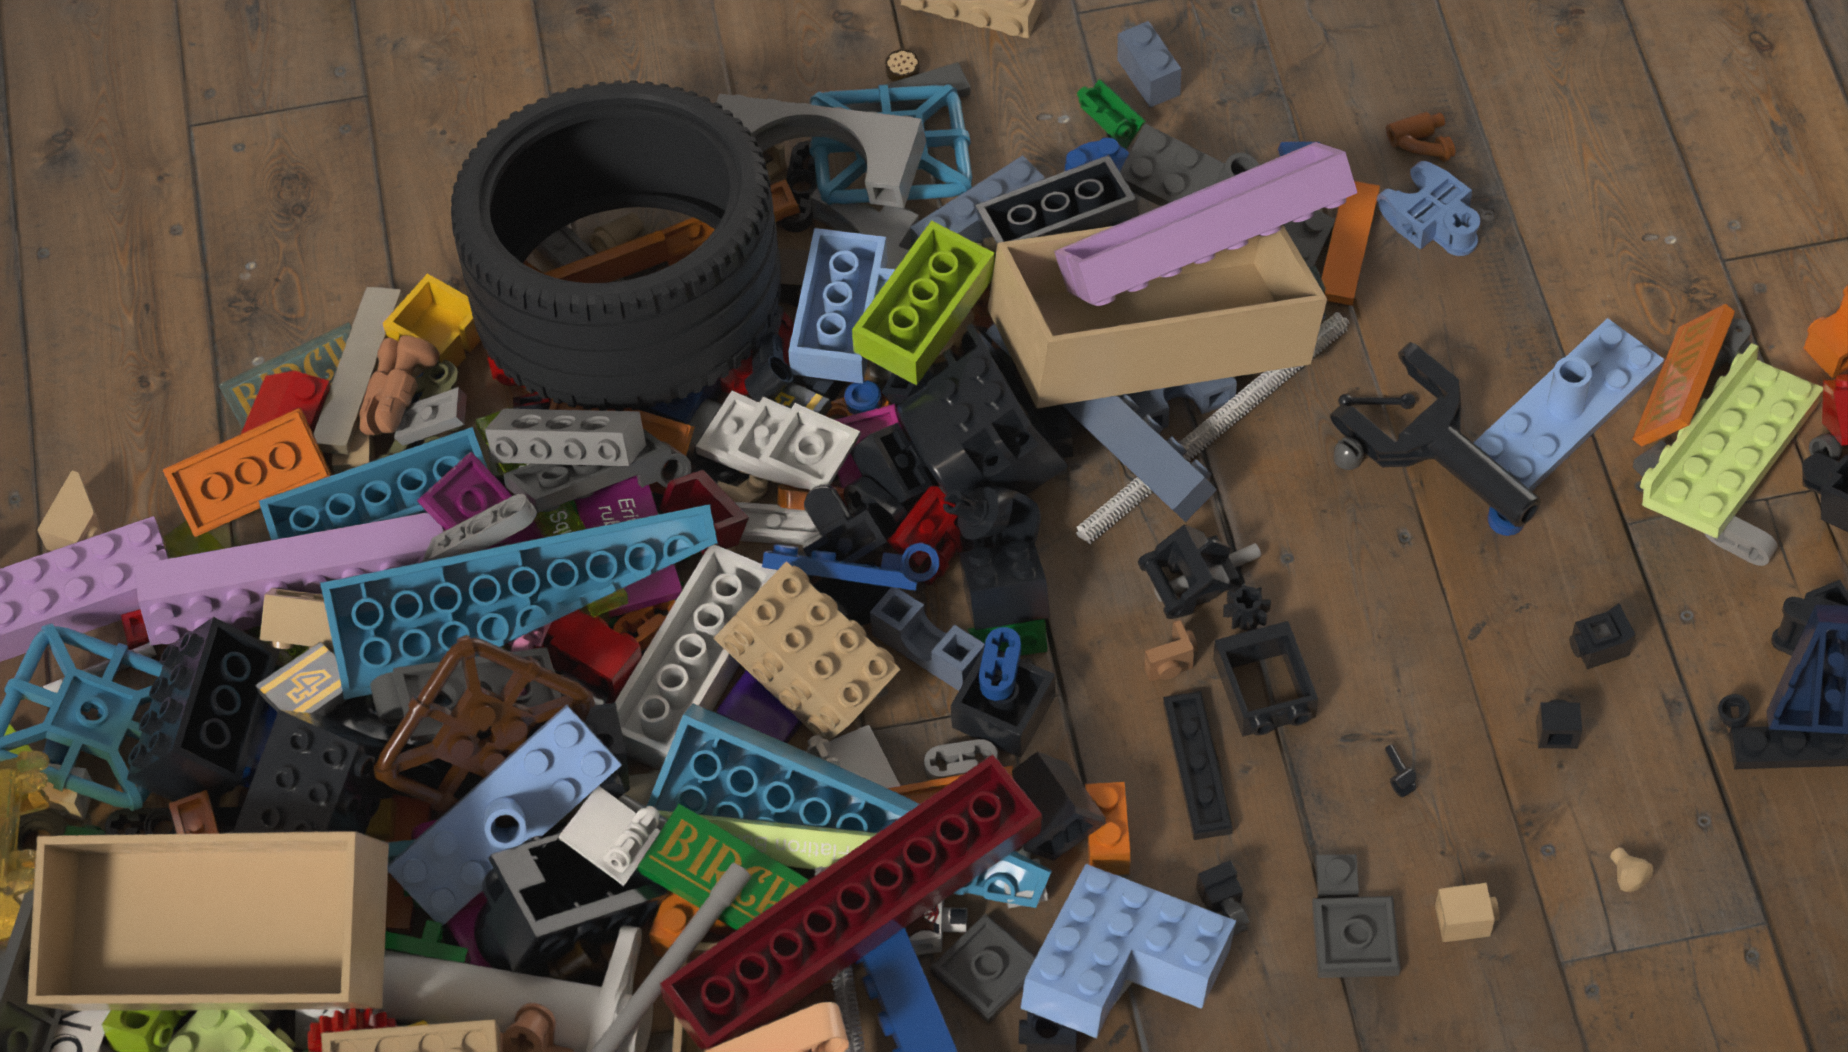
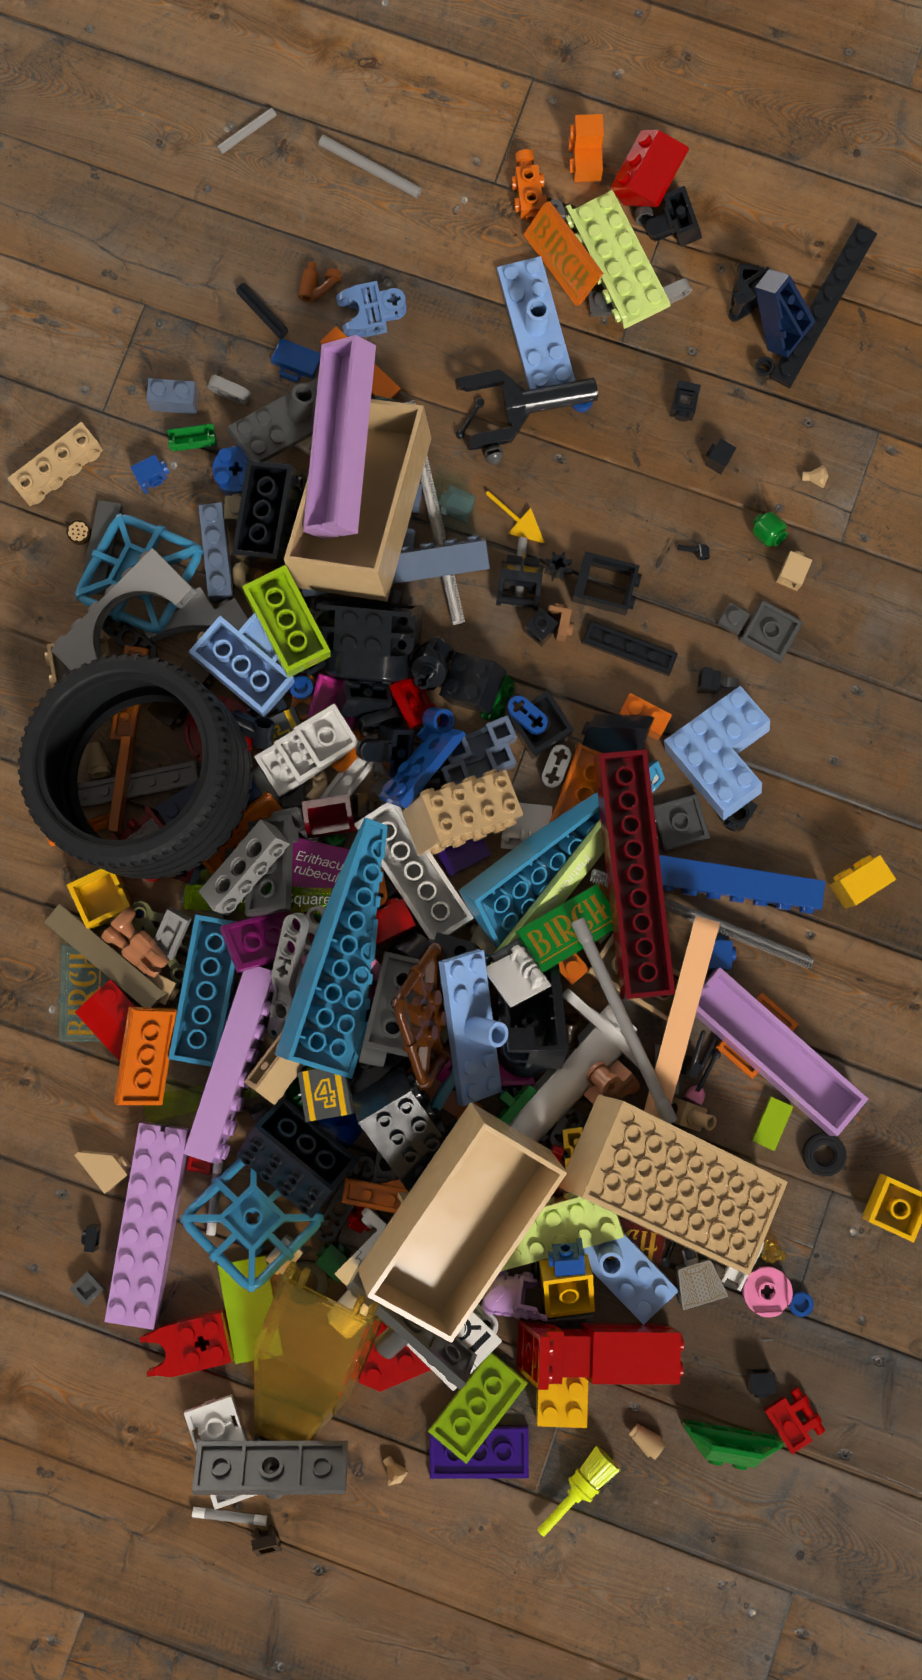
camera: 65 degrees left, 25 degrees up
(750, 547) = (362, 806): none -> dark brown tile
(921, 673) = (497, 757): none -> sand blue arch
(1030, 93) = (150, 473): none -> blue brick
(1143, 629) = (540, 627): none -> black brick
(1204, 118) = (229, 390): none -> light grey beam
(1244, 445) = (457, 504): none -> clear light blue brick
(1279, 546) = (525, 527): none -> yellow piece
(1337, 100) = (262, 310): none -> black axle
(1501, 846) = (769, 529): none -> green head
(1624, 114) = (370, 166): none -> light grey piece
(1752, 289) = (526, 187): none -> orange brick

